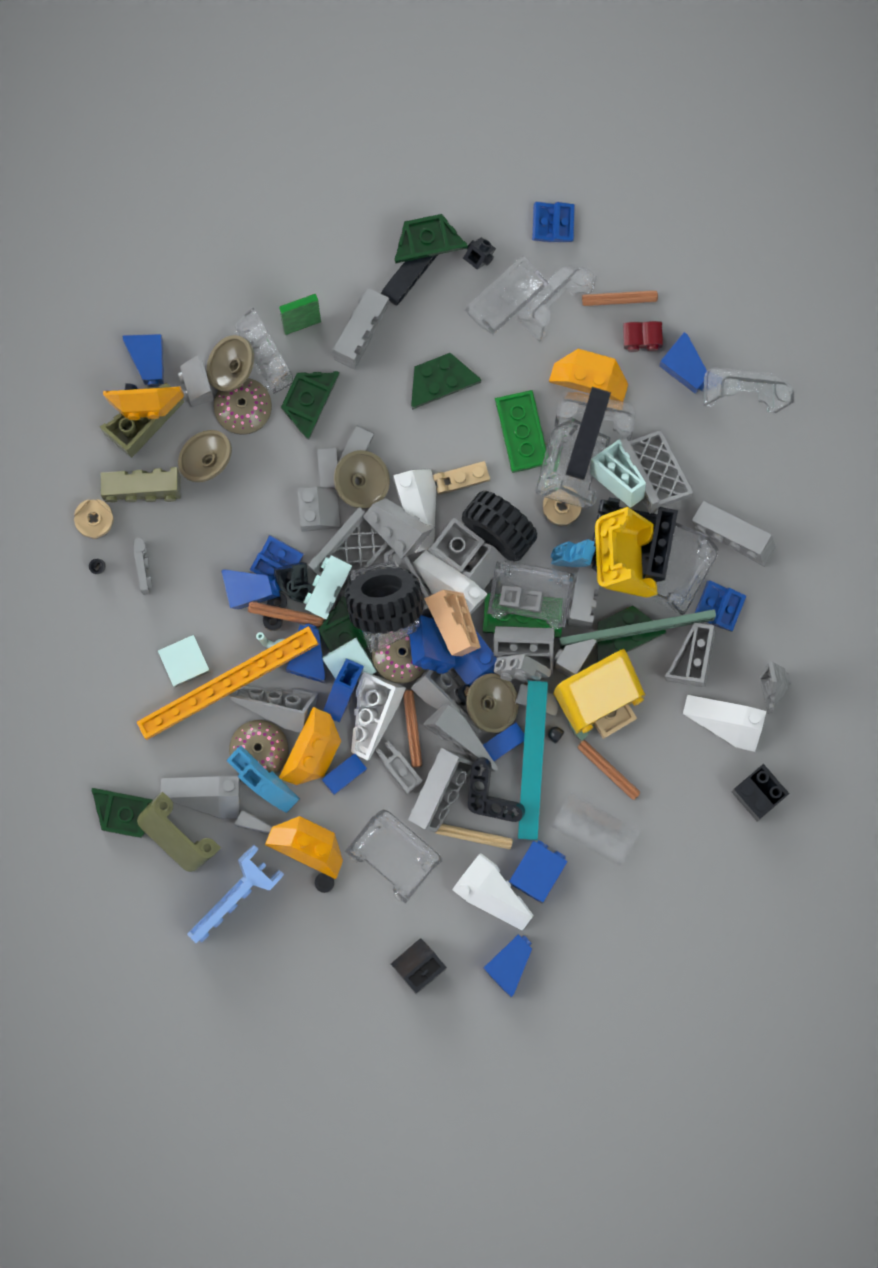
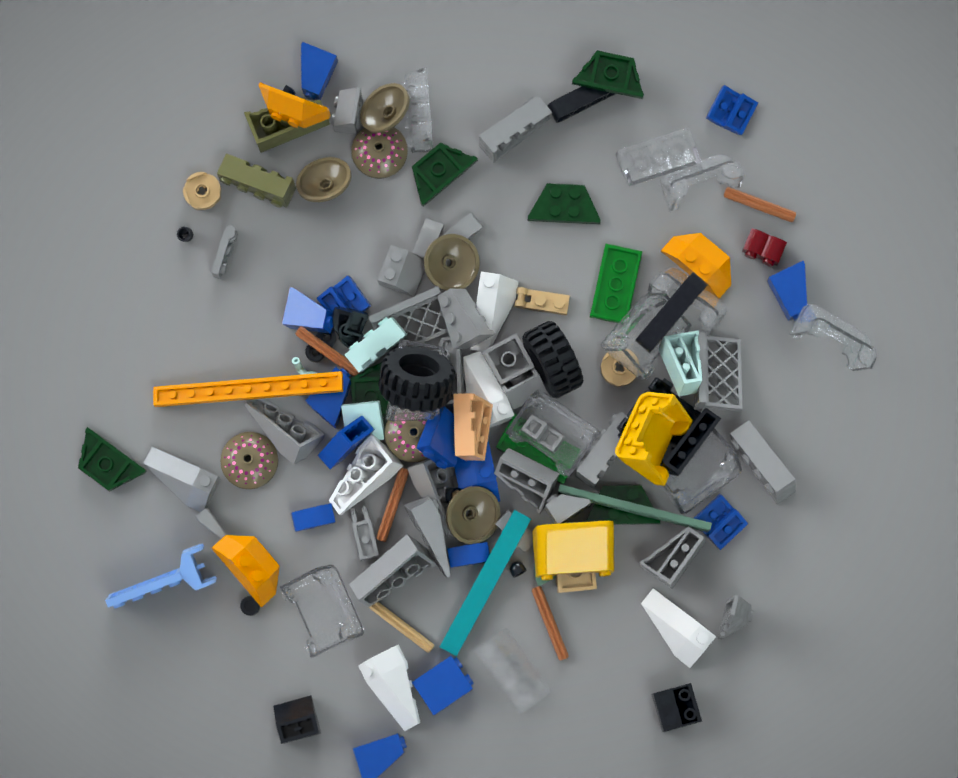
camera: 30 degrees right, 0 degrees up
(159, 828) = (123, 484): olive windscreen -> none
(183, 660) = (220, 352): light aqua tile -> none
(262, 782) = (235, 490): dark azure slope -> none
(300, 314) = (464, 91): green tile -> none
(312, 750) = (295, 482): light orange wedge -> none
(479, 253) = (652, 108): black brick -> none
(487, 801) = (426, 599): black beam -> none
(520, 668) = (511, 495): light grey plate -> none
(573, 554) = (607, 415): dark azure slope -> none

